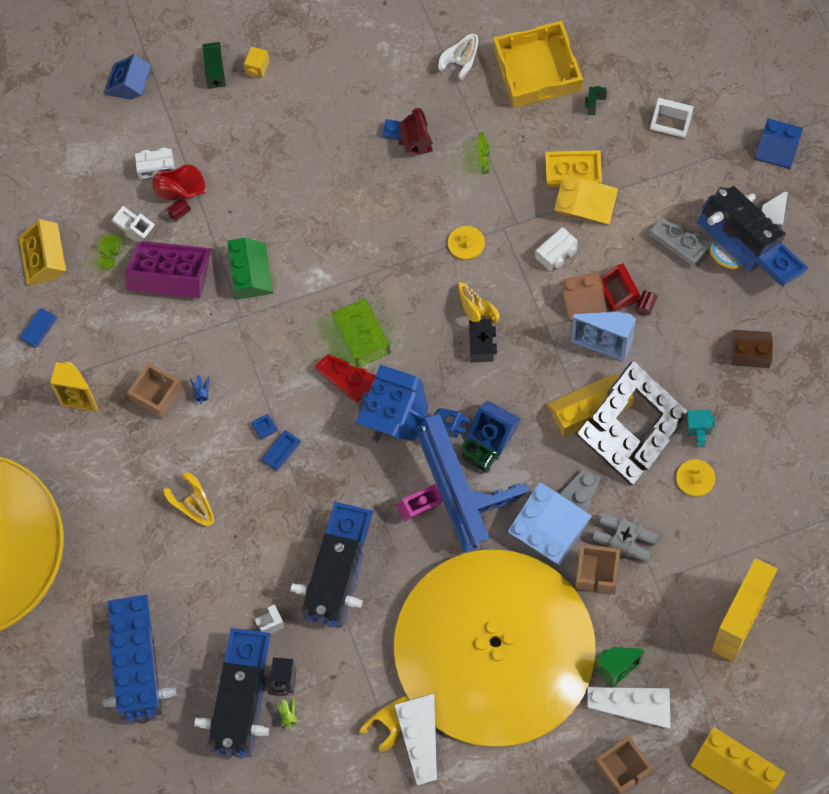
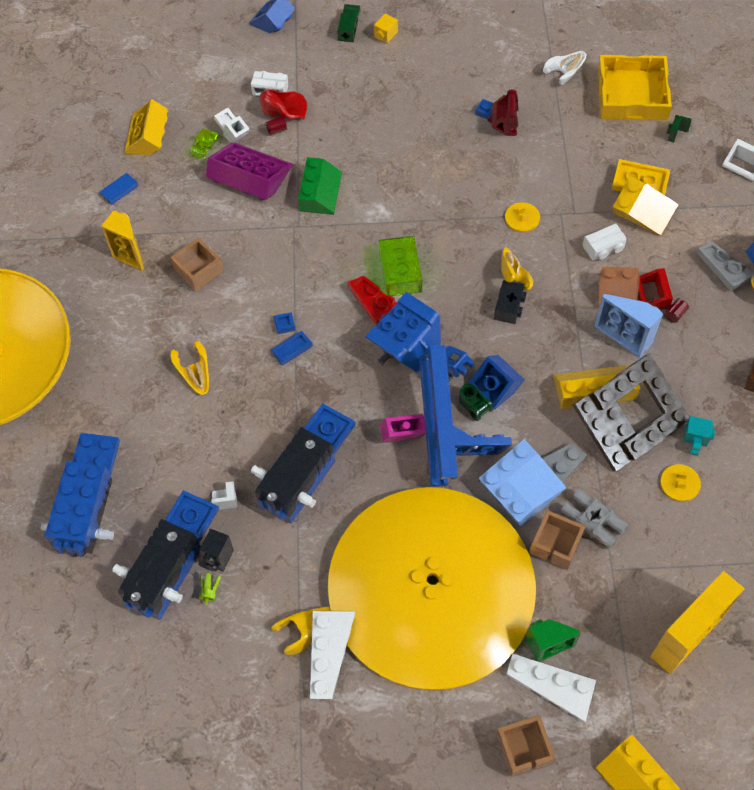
camera: 15 degrees right, 5 degrees down
(200, 394) = (237, 280): blue piece -> none
(483, 152) = (562, 146): clear neon green slope -> none

